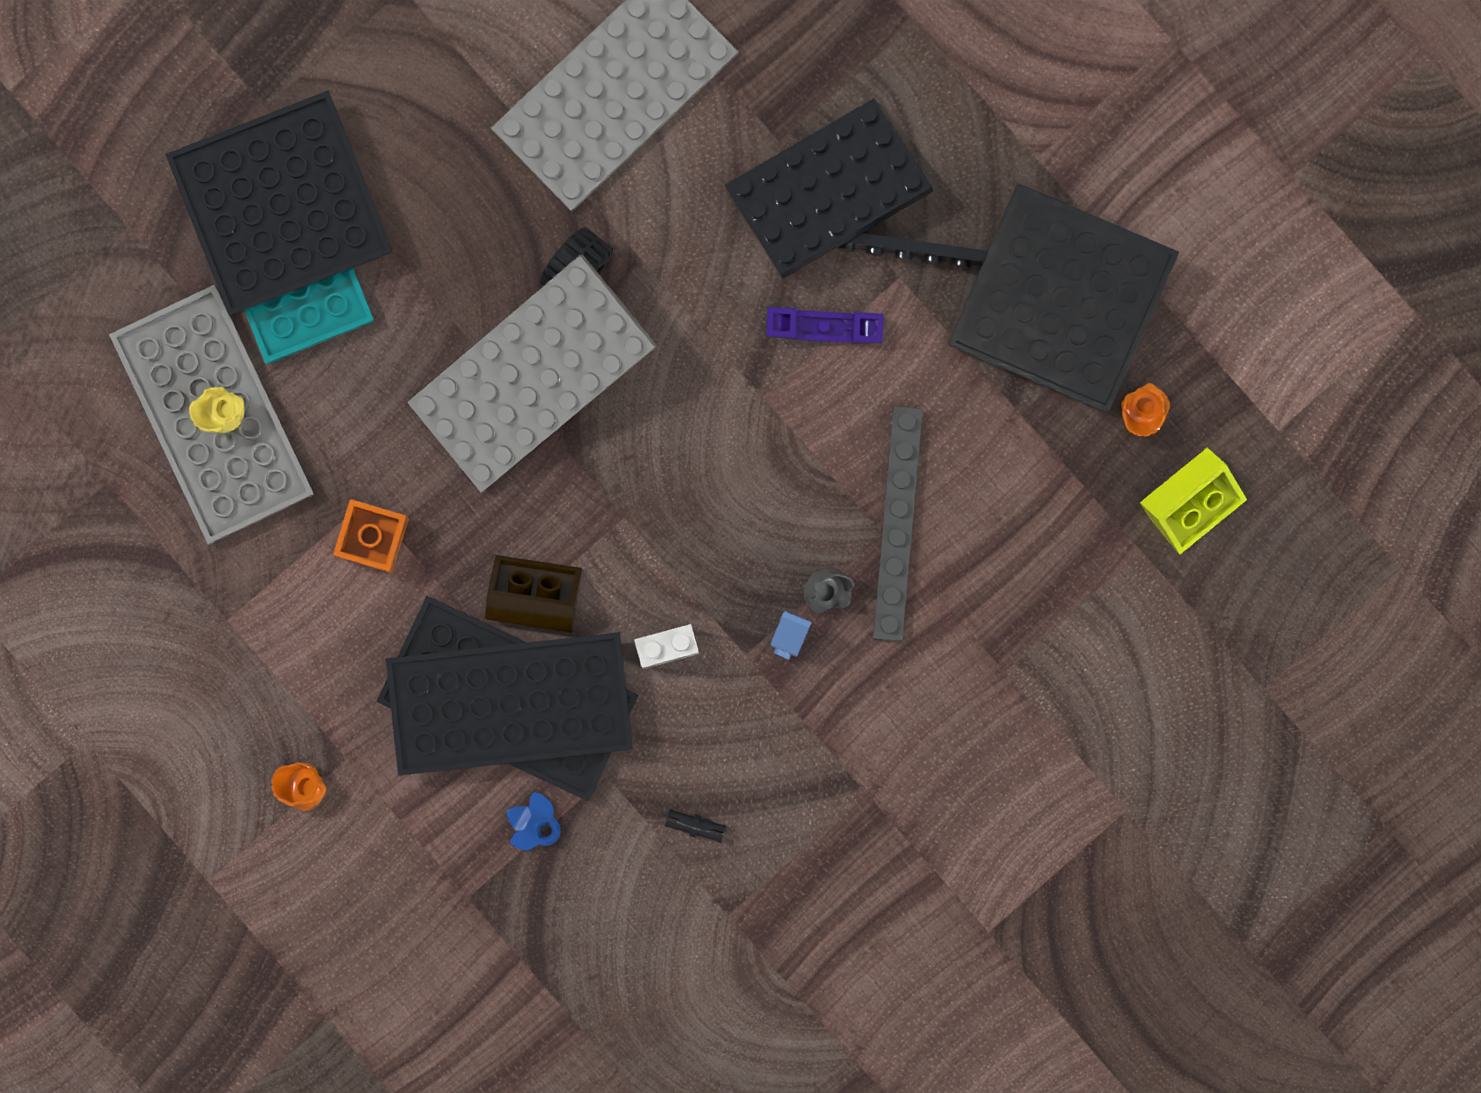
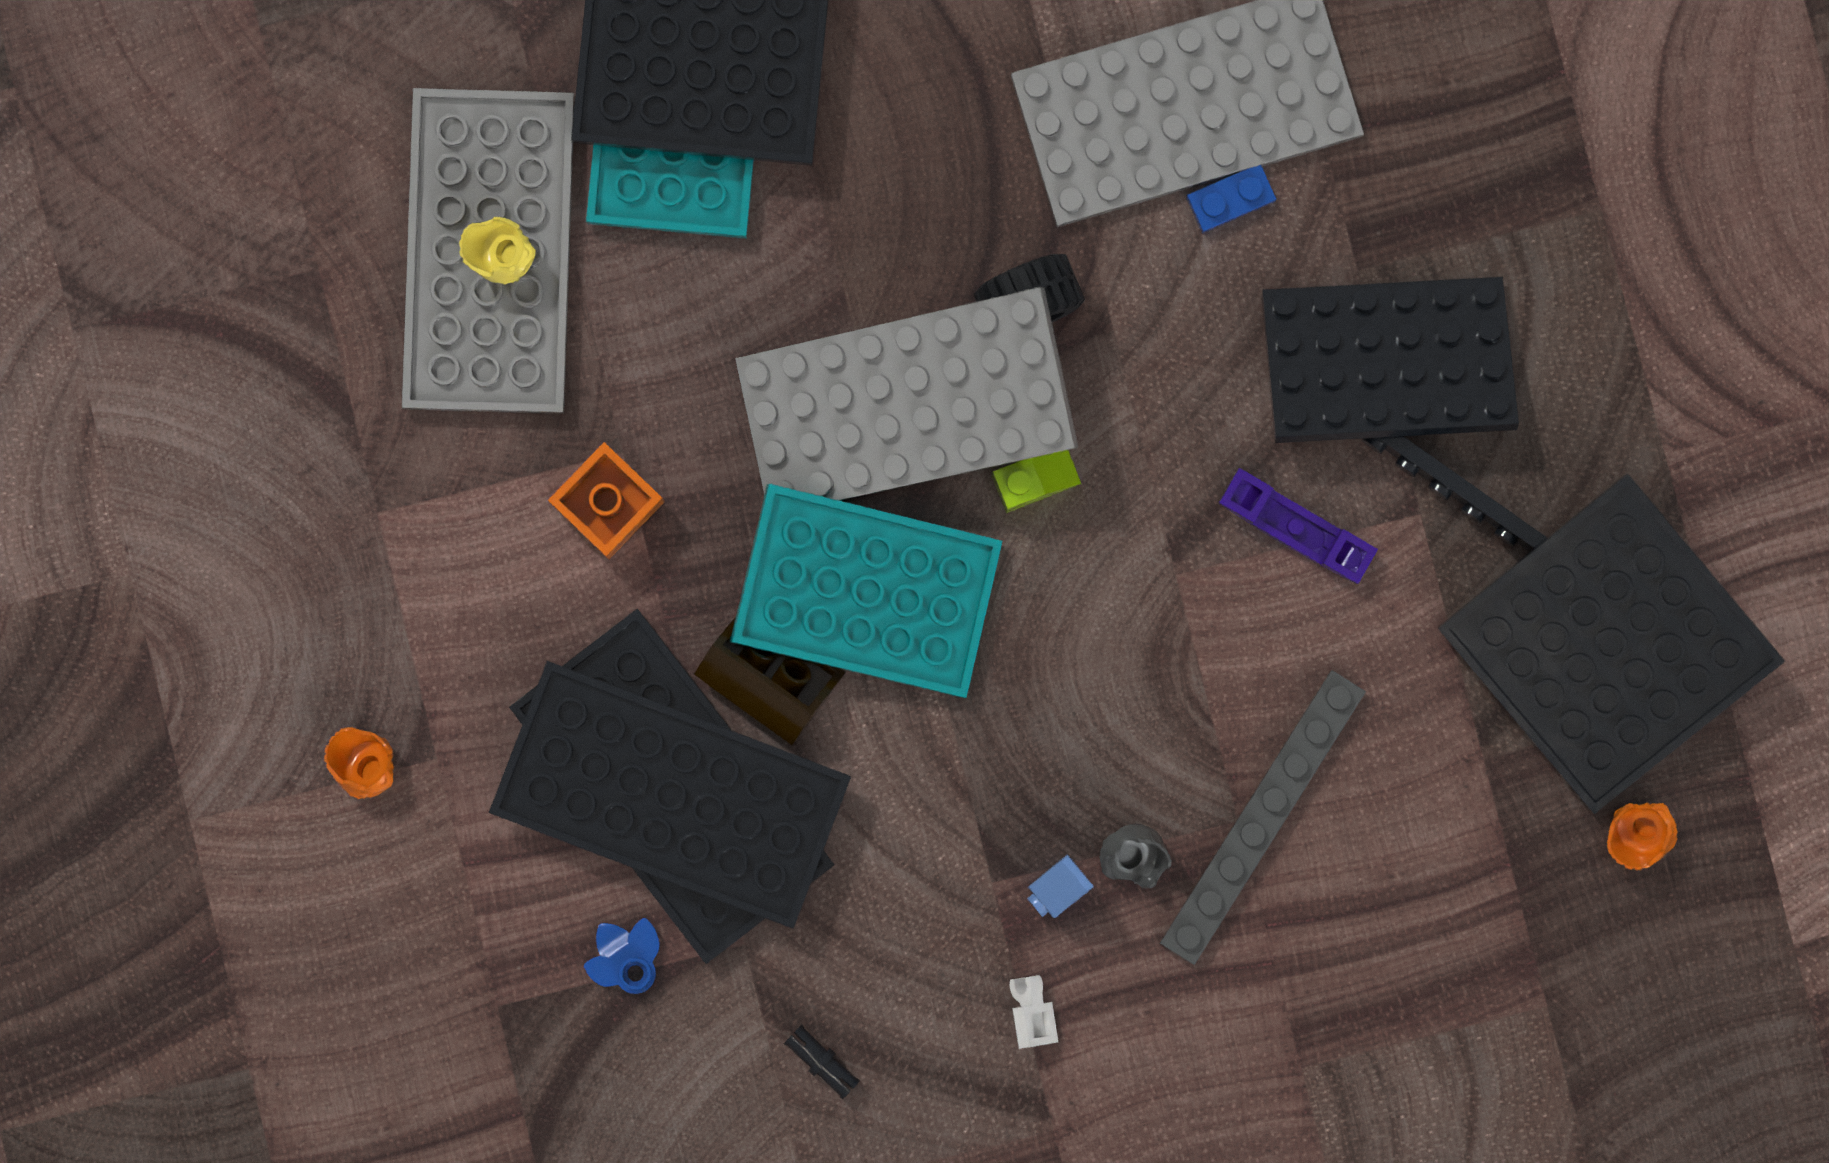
camera: 25 degrees right, 0 degrees up
(568, 508) = (866, 591): none -> teal plate
(640, 381) = (1035, 479): none -> lime slope
(666, 646) = (899, 823): white brick -> none
(674, 136) = (1231, 198): none -> blue plate
(817, 727) = (1034, 1018): none -> white plate
(1193, 500) = (1644, 977): neon yellow slope -> none

